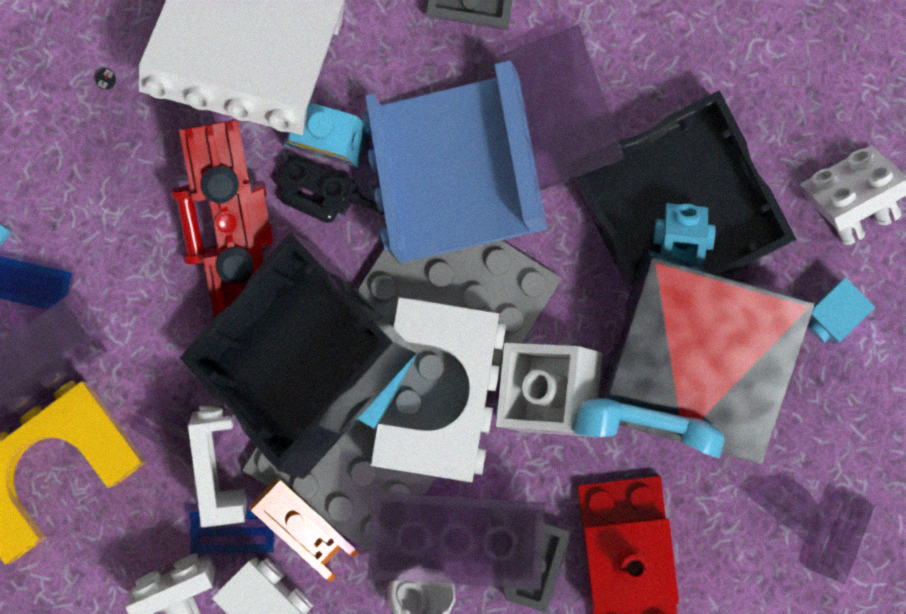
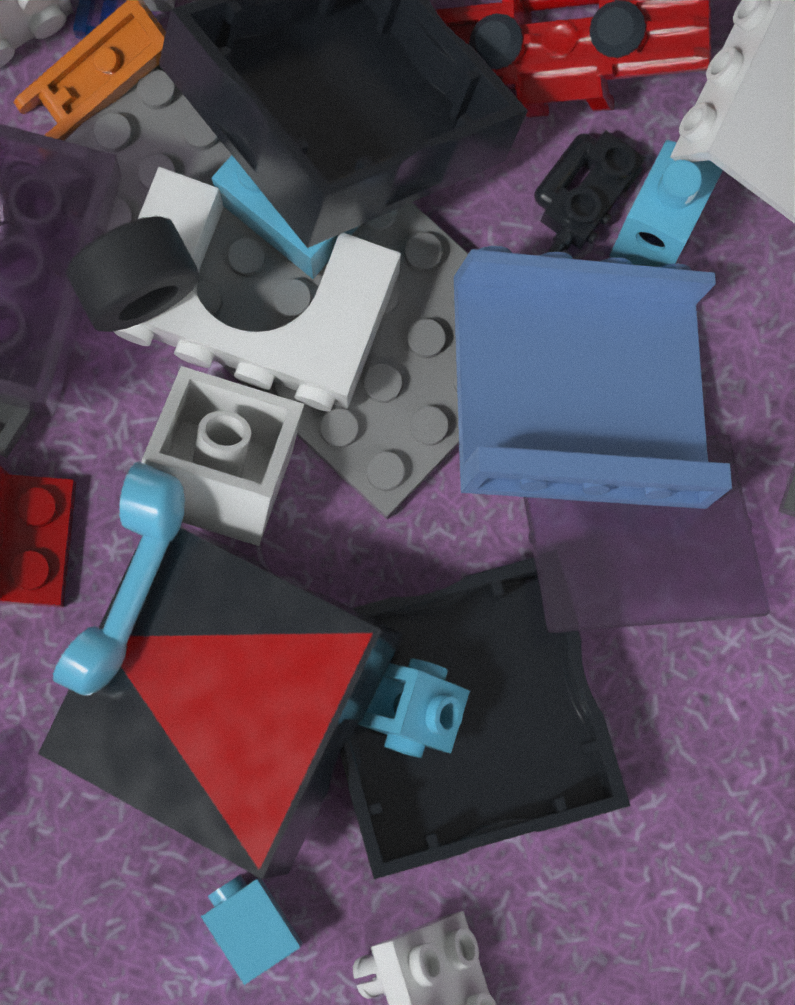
camera: 95 degrees right, 5 degrees down
(455, 460) = (132, 273): none -> black tyre

